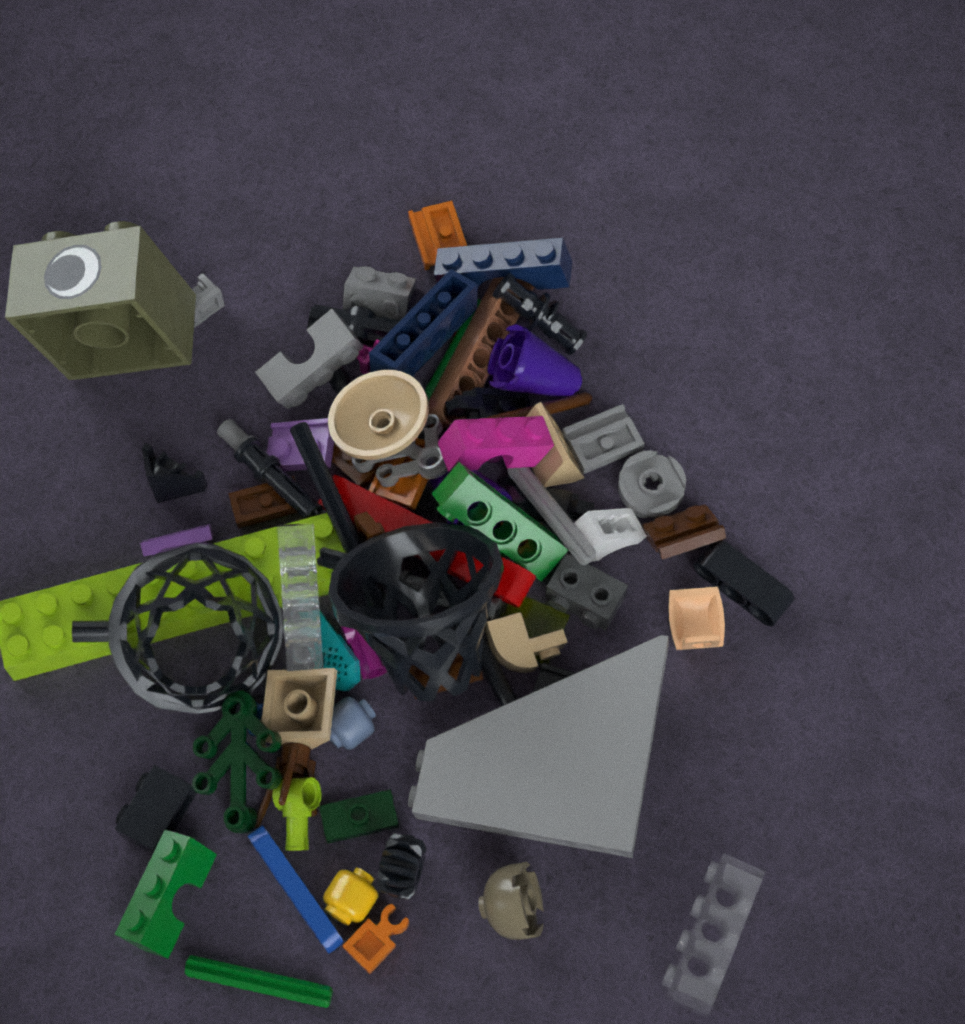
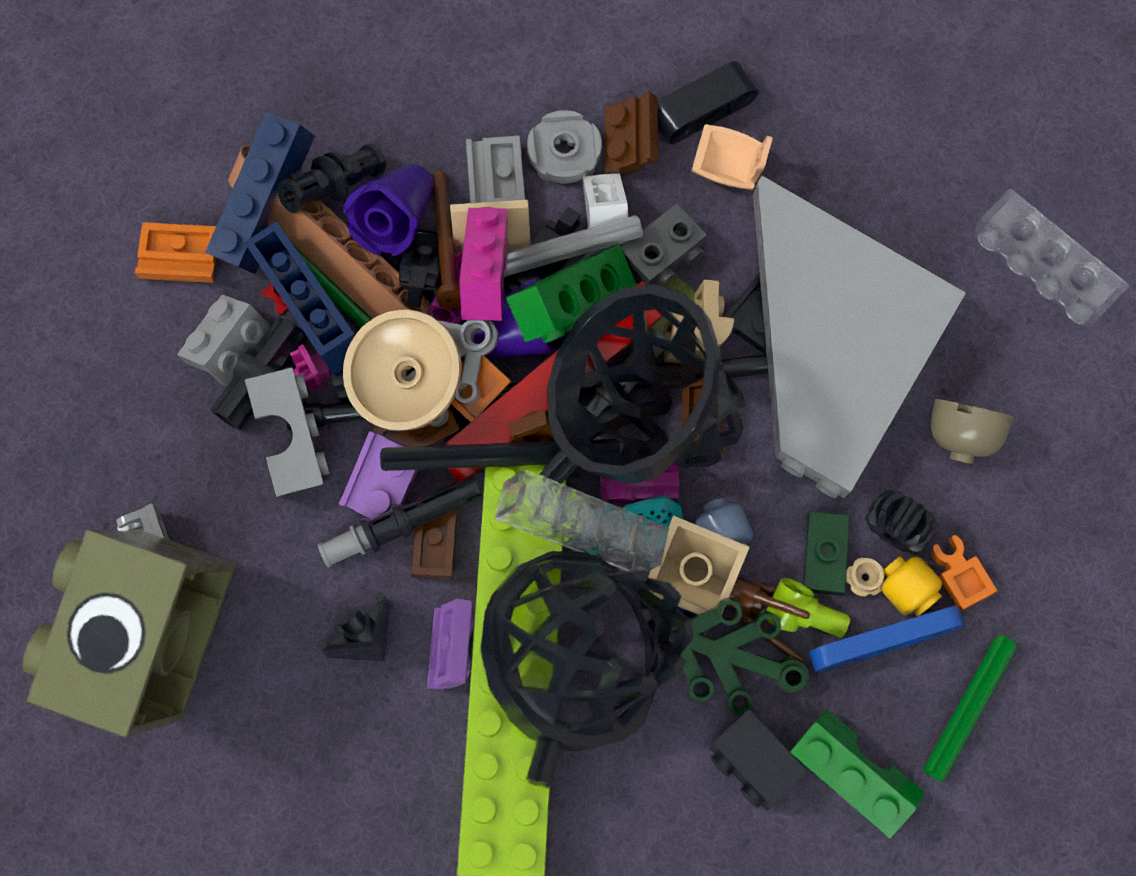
camera: 70 degrees left, 5 degrees up
(343, 847) = (870, 568): none -> tan plate

